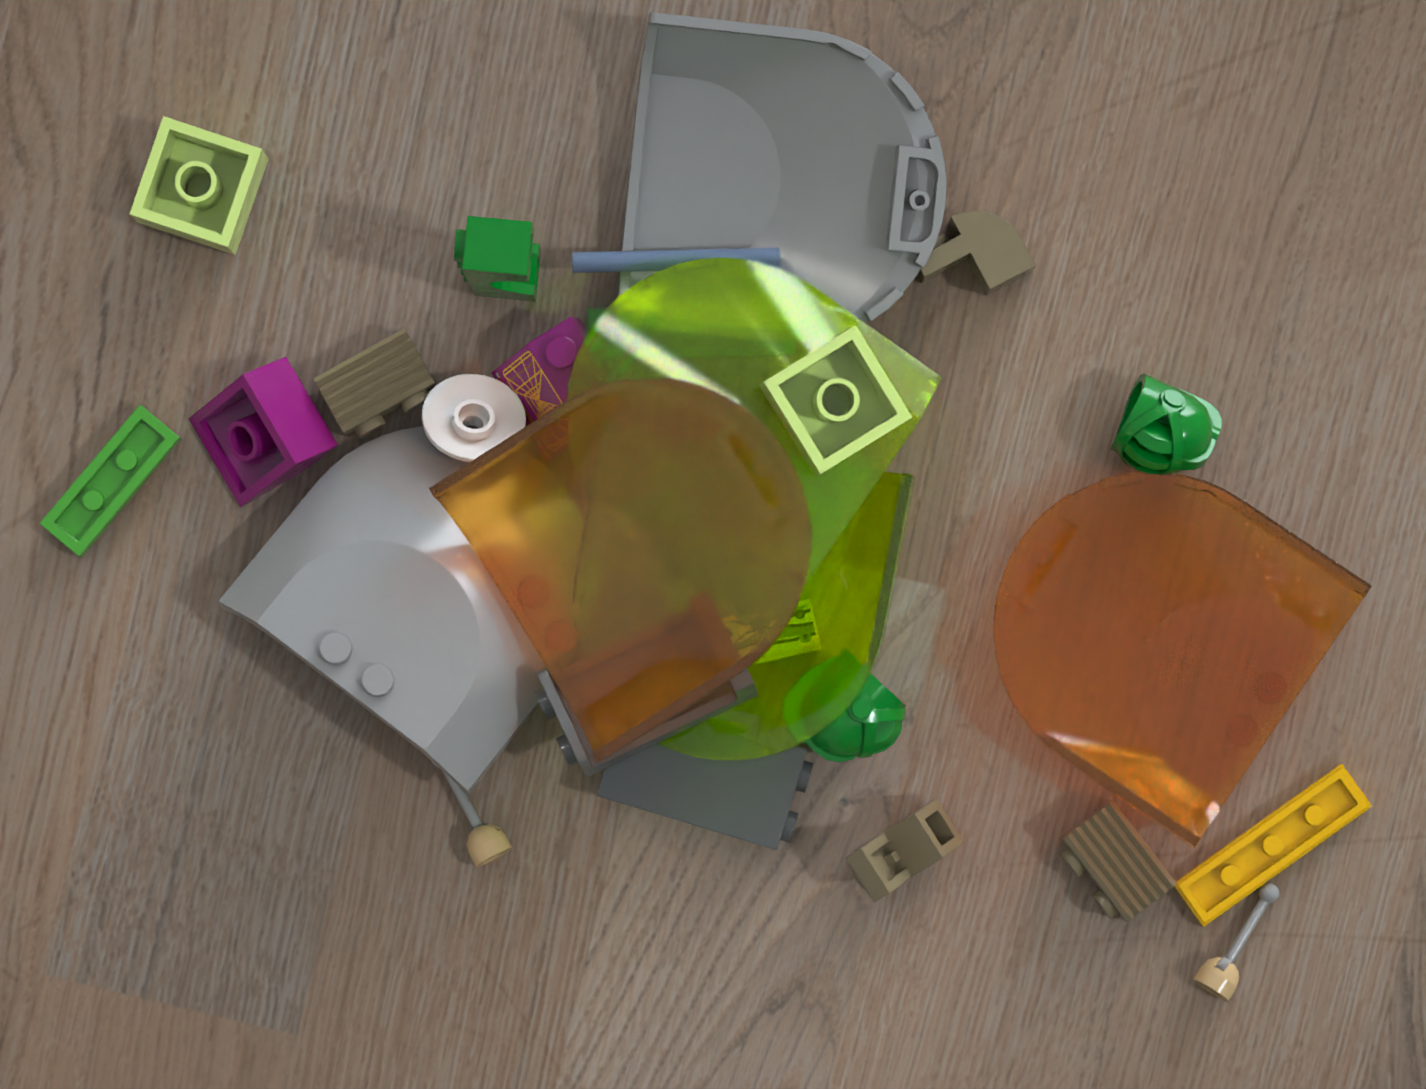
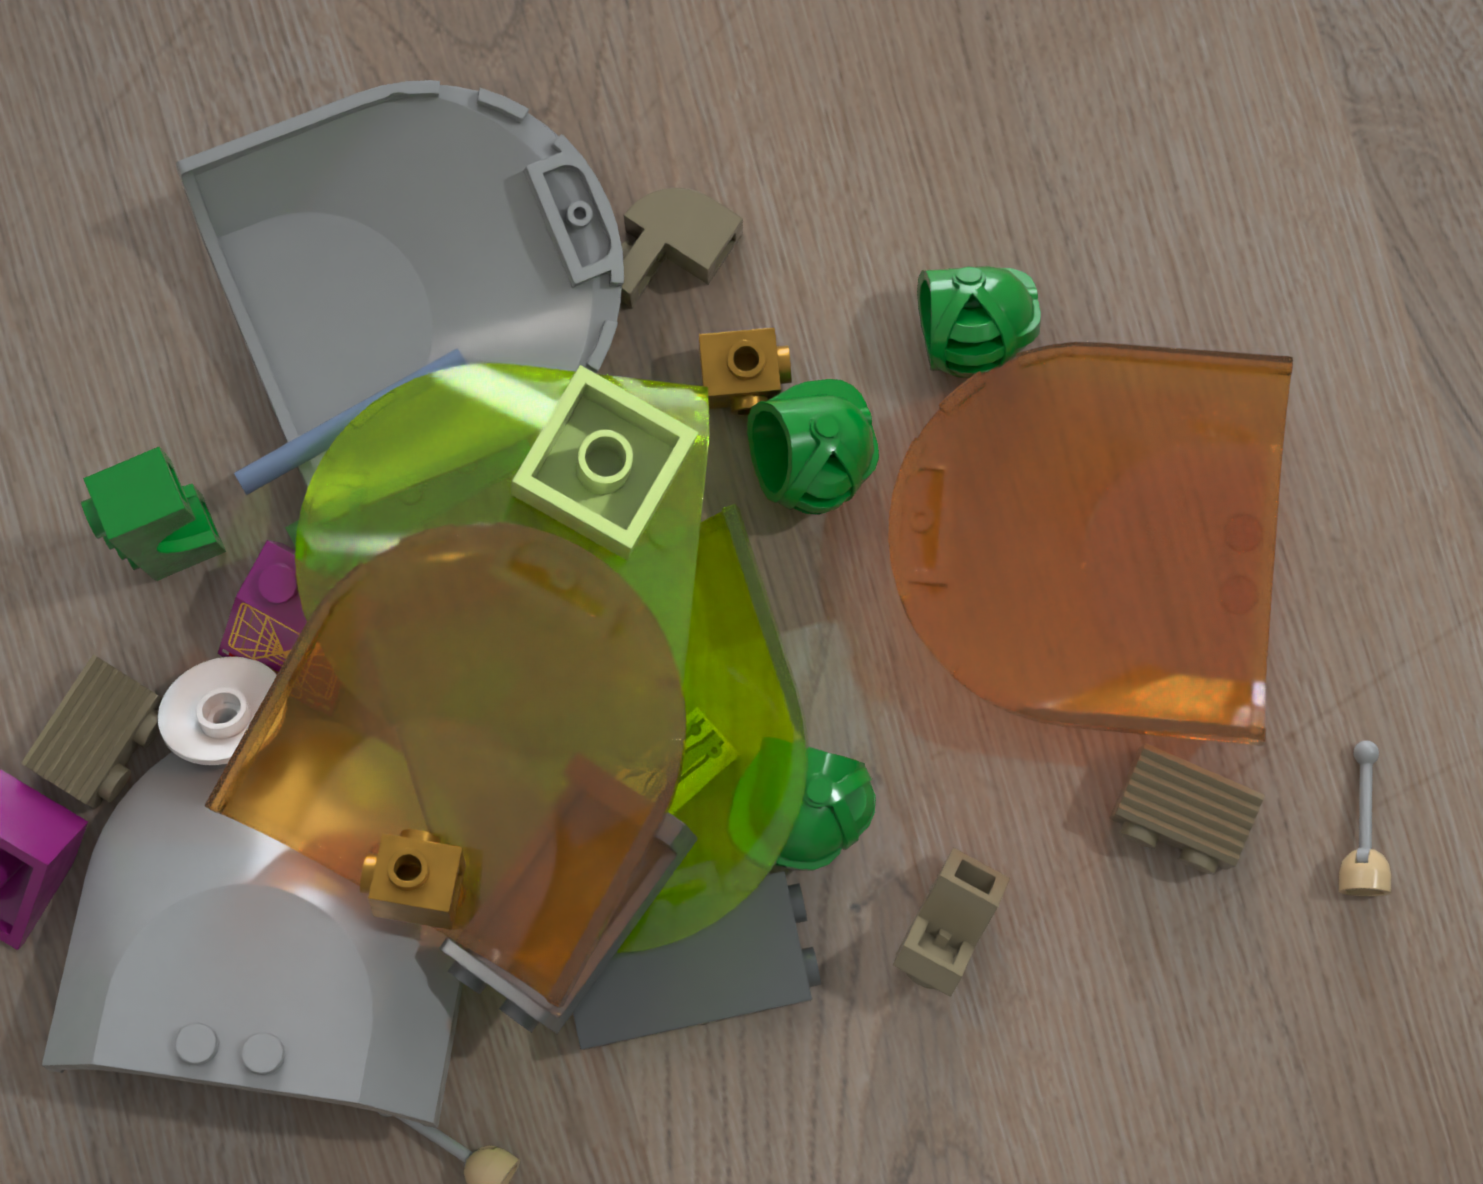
camera: 30 degrees left, 5 degrees down
(546, 617) = (414, 879): none -> pearl gold brick
(976, 374) = (743, 368): none -> pearl gold brick
(995, 457) = (812, 445): none -> green helmet
(1271, 845) = (1339, 700): yellow tile -> none

